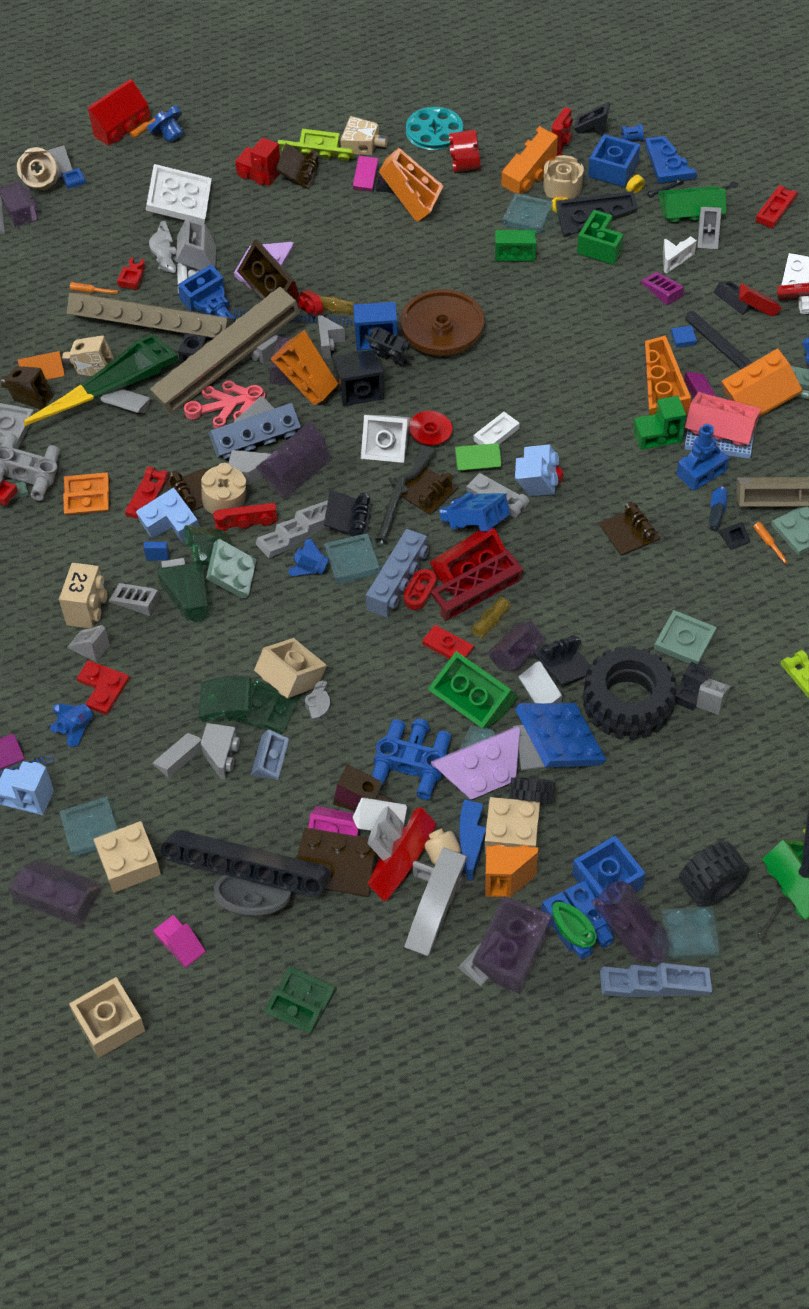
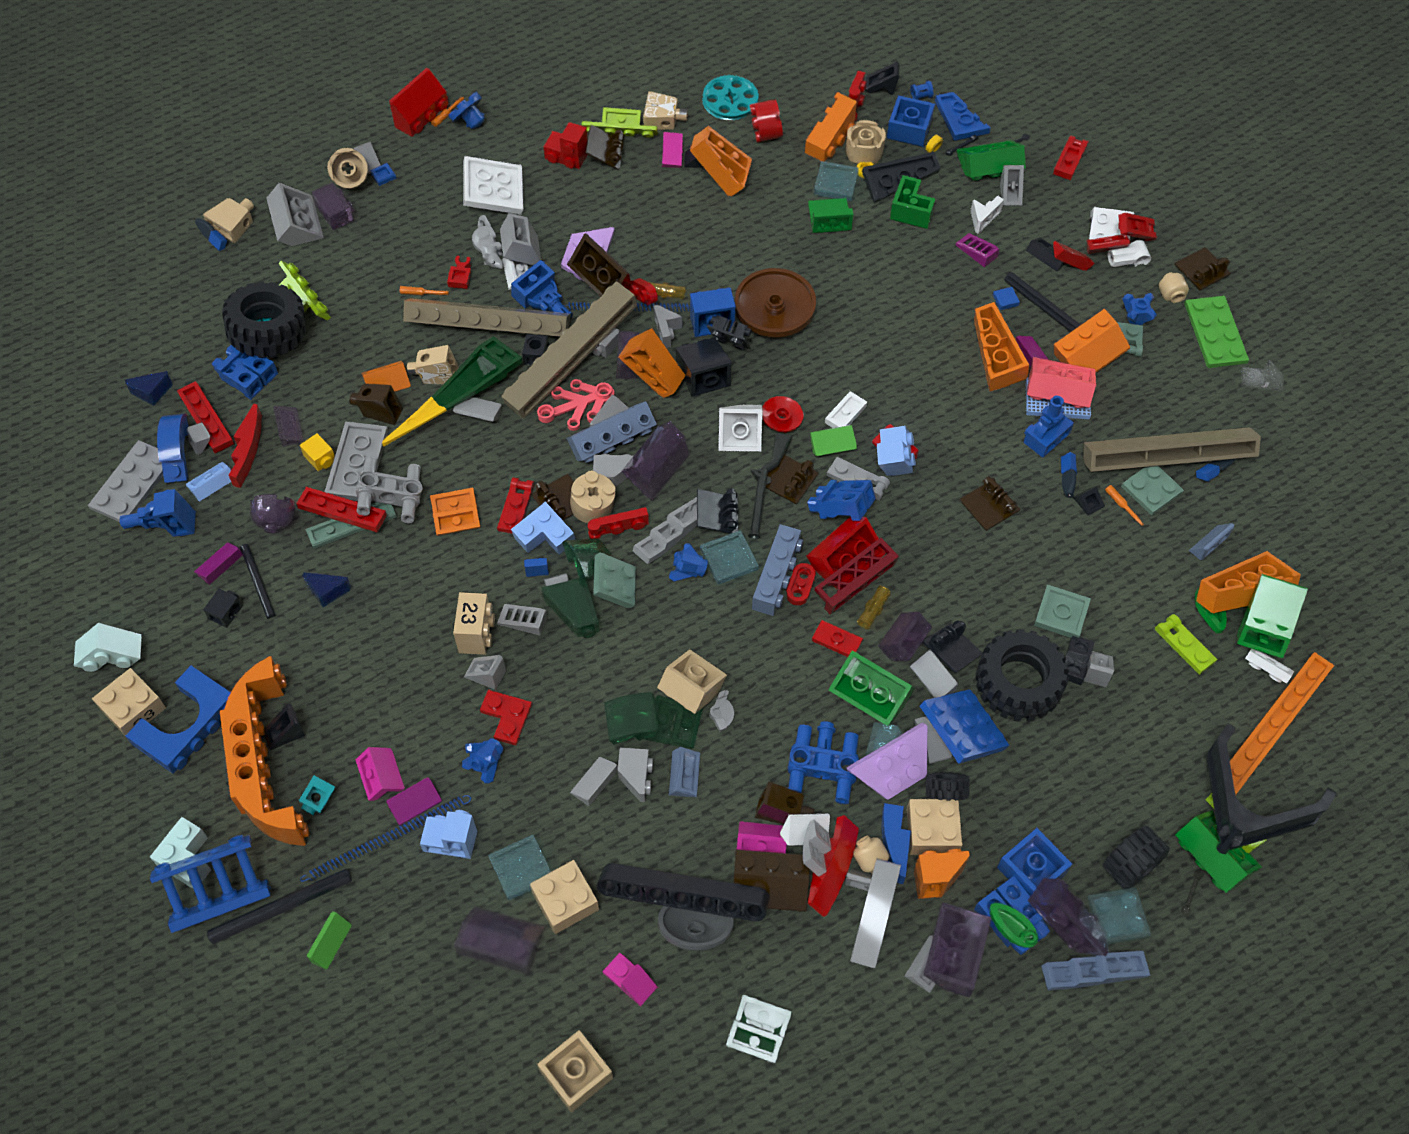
camera: 10 degrees left, 5 degrees up
(662, 428) = (1005, 395): green brick -> none

